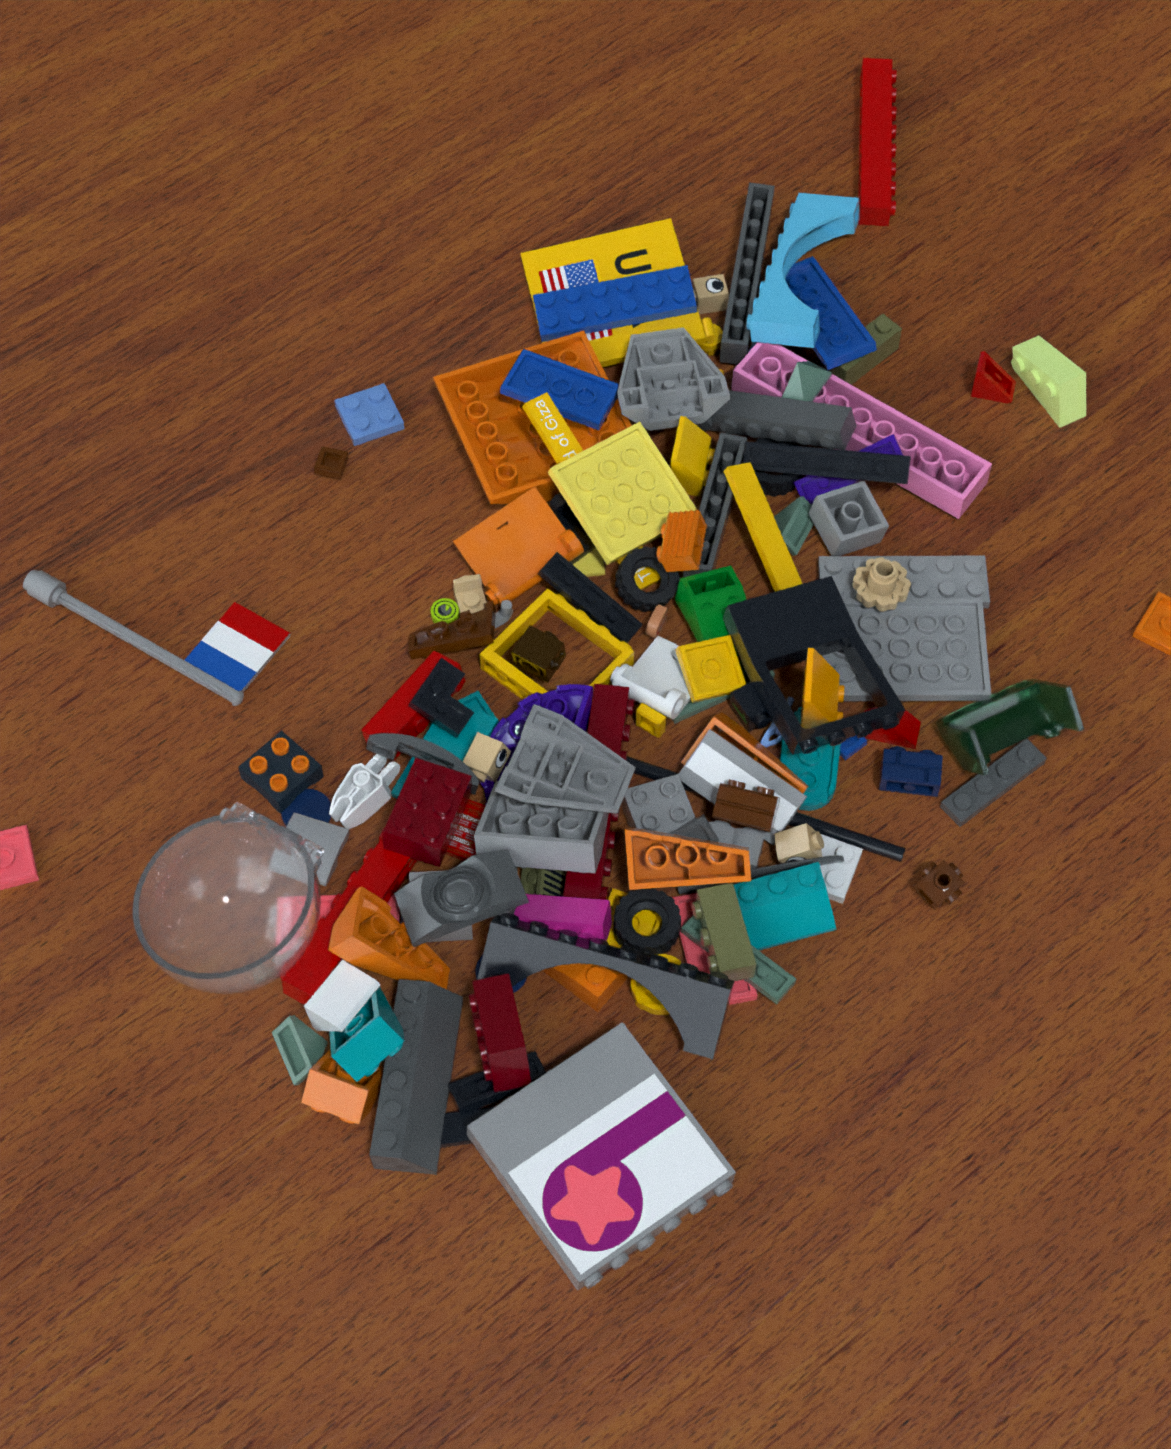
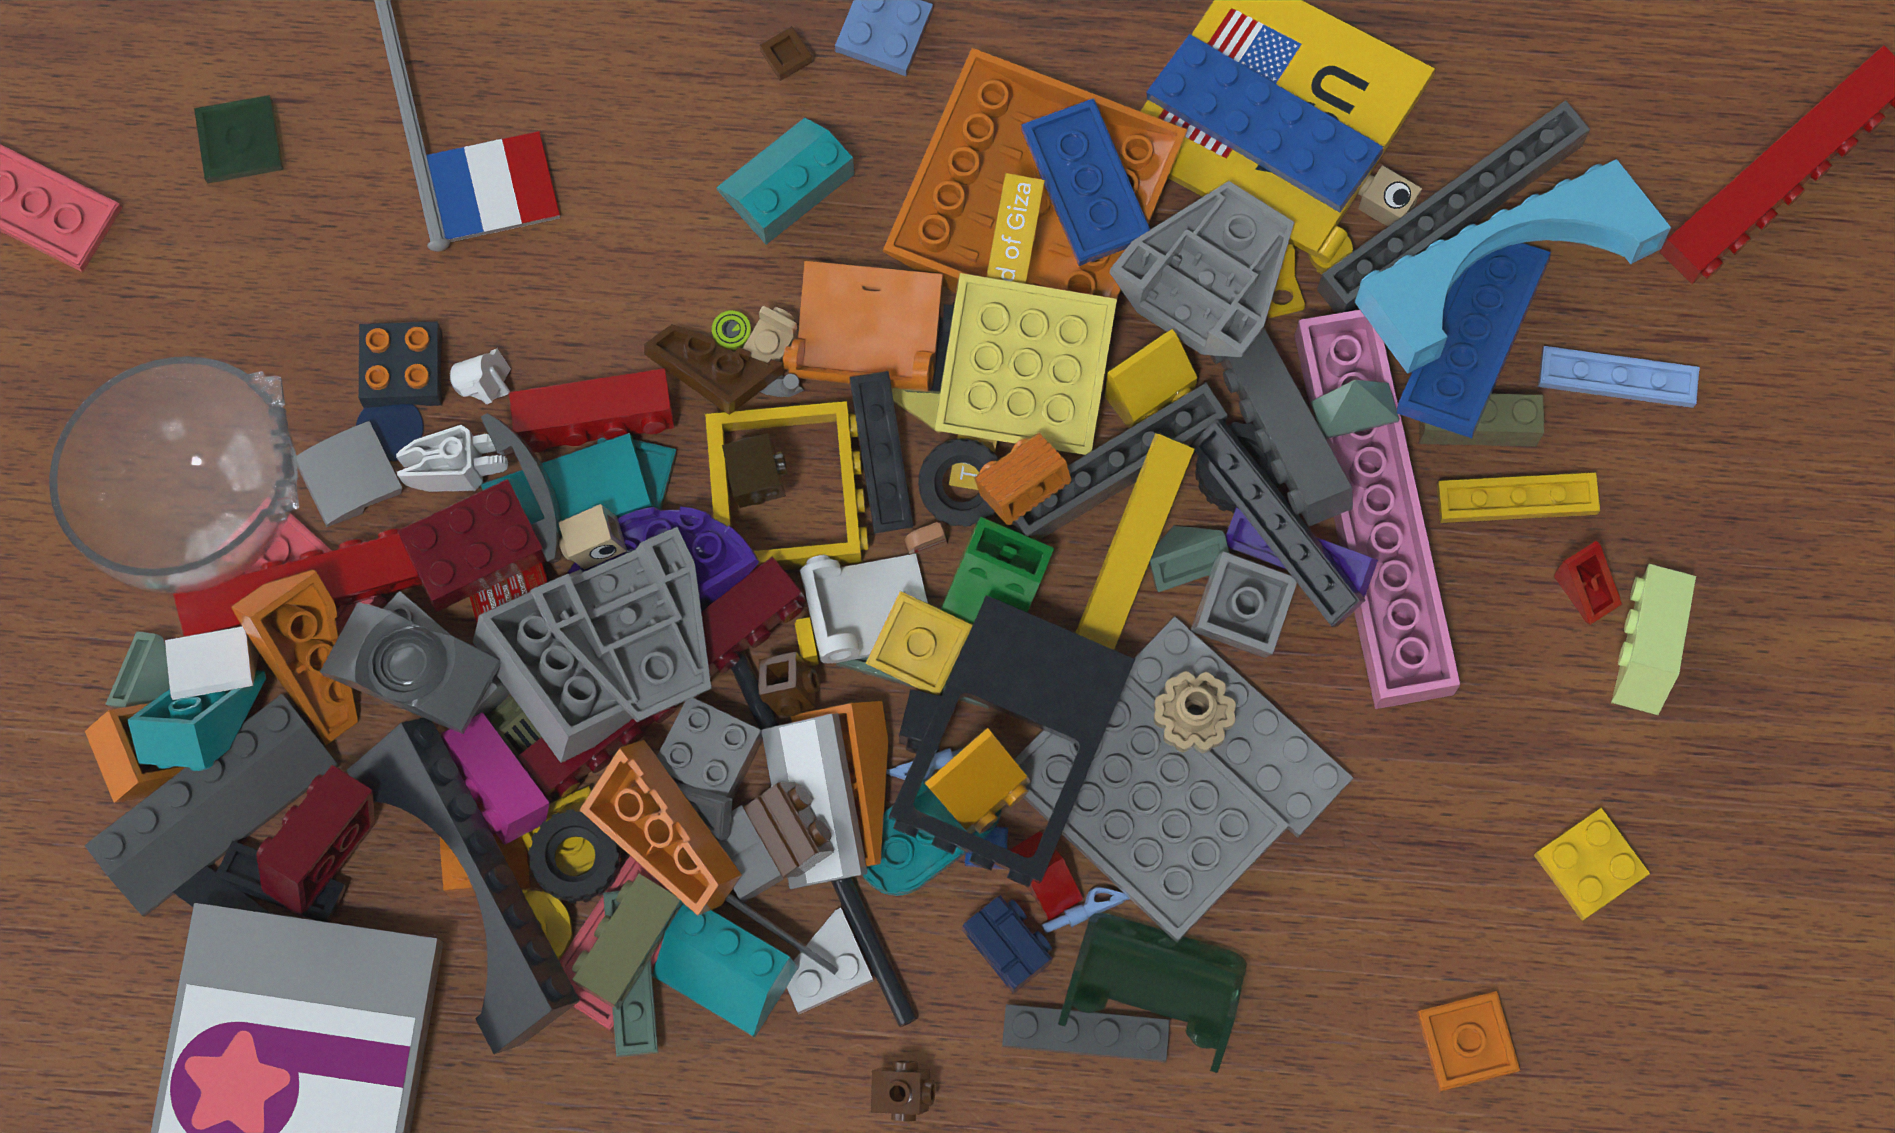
camera: 45 degrees right, 15 degrees up
(63, 739) = (238, 139): none -> clear green tile
(334, 741) = (481, 377): none -> white piece
(396, 517) = (788, 179): none -> teal slope
(435, 699) = (598, 431): black plate -> none
(665, 745) = (787, 684): none -> reddish brown brick
(798, 844) = (805, 917): tan brick -> none
(901, 288) = (1618, 376): none -> light blue tile
(918, 372) = (1518, 497): none -> yellow plate
(929, 723) = (1082, 912): none -> light blue hand
(1134, 501) = (1591, 864): none -> yellow plate

